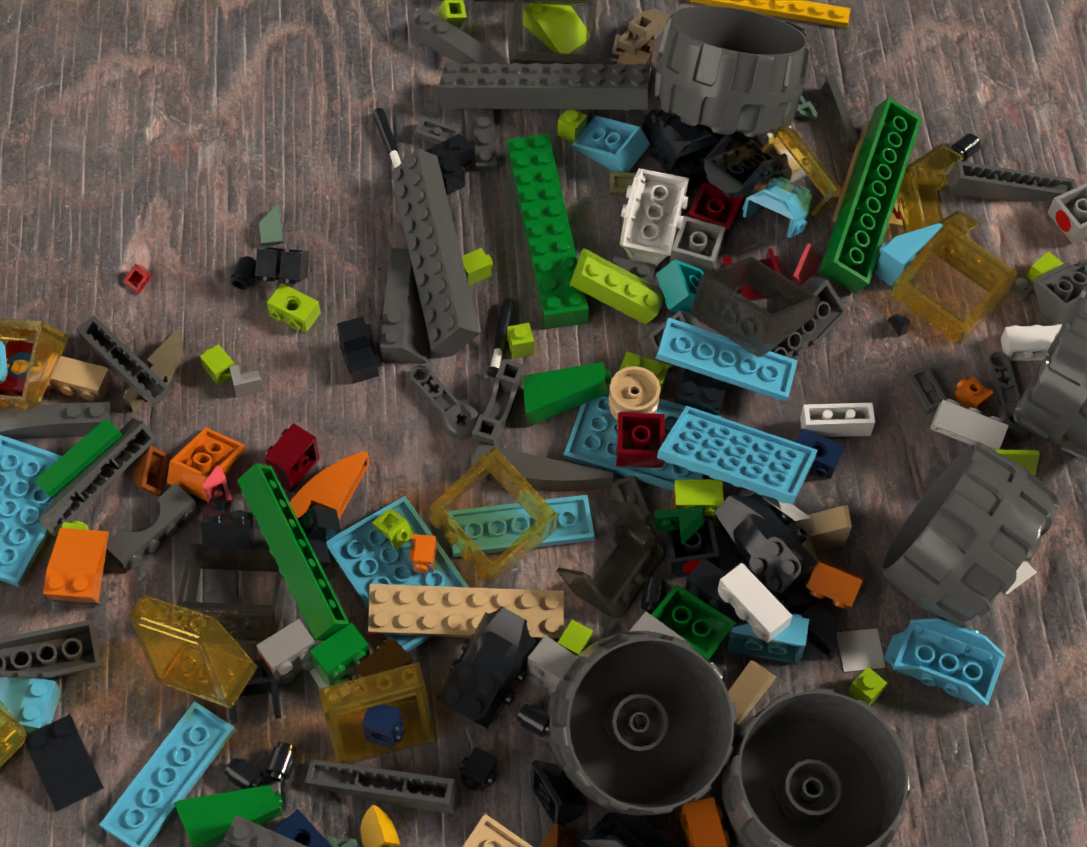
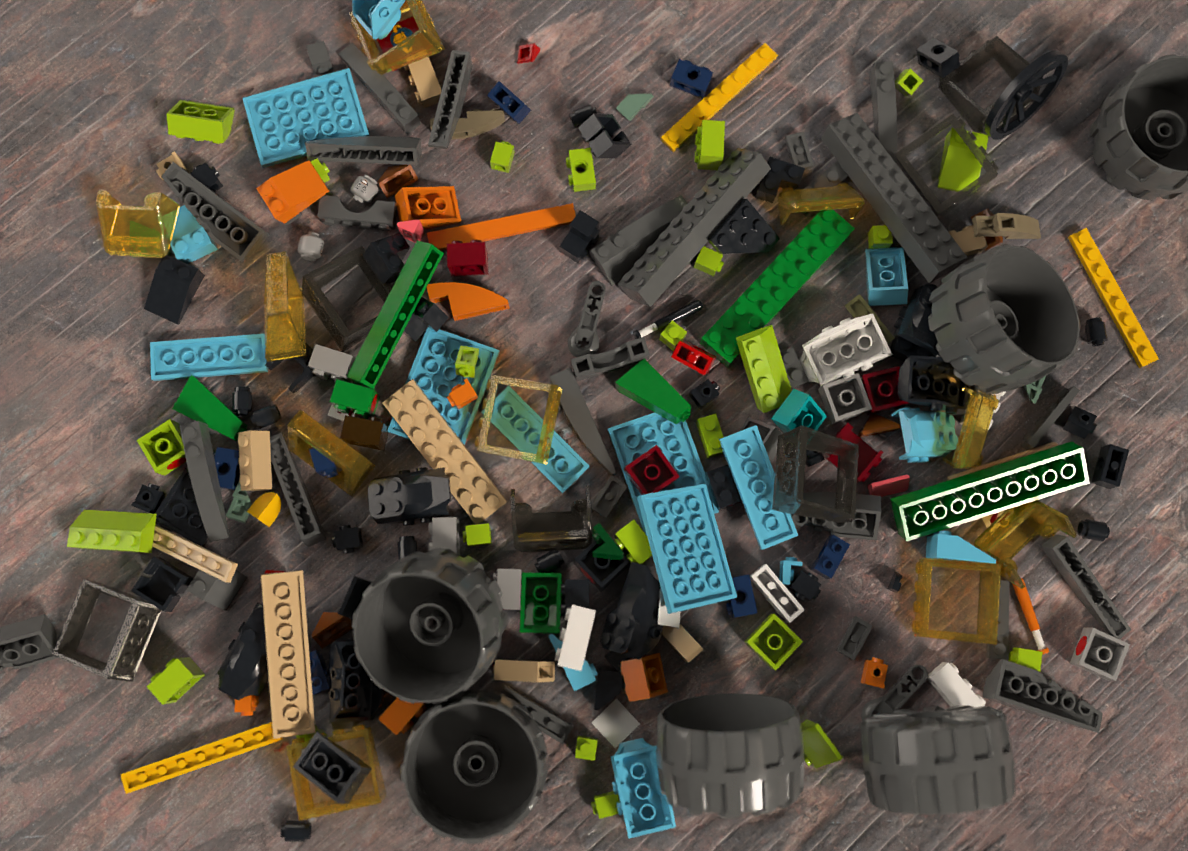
camera: 50 degrees right, 20 degrees up
(78, 457) = (365, 129): green tile -> none
(134, 504) = (364, 189): none -> light grey head
(142, 587) = (310, 246): none -> light grey head
(167, 319) = (509, 102): none -> dark blue brick
(245, 383) = (504, 183): light grey panel -> none
(289, 405) = (504, 226): none -> orange tile
(292, 166) = (696, 87): none -> dark blue brick
(320, 802) = (255, 460): none -> tan brick
(329, 161) = (719, 97): none -> yellow plate
(370, 189) = (709, 144): none -> lime brick
(386, 135) = (770, 118): black piece -> none
(474, 217) = (744, 232): none -> black plate
(479, 165) = (819, 199): none -> clear yellow windscreen
(556, 336) = (693, 357): none -> red brick
(598, 350) = (700, 398): none -> black brick
(634, 391) = (679, 455): tan wheel -> none
(742, 240) = (877, 425): none -> dark orange slope
(817, 394) = (785, 572): none -> medium azure bracket
(835, 356) = (830, 557): none -> dark blue brick
(848, 391) = (805, 586): none -> black brick
(862, 94) = (1080, 422): none -> black brick
(882, 453) = (773, 641): none -> lime brick
(918, 97) = (1110, 466): none -> black brick
(938, 708) = (606, 804): none -> lime brick
(968, 425) = (843, 688): white brick -> none
(1003, 242) = (1027, 608): none -> orange piece

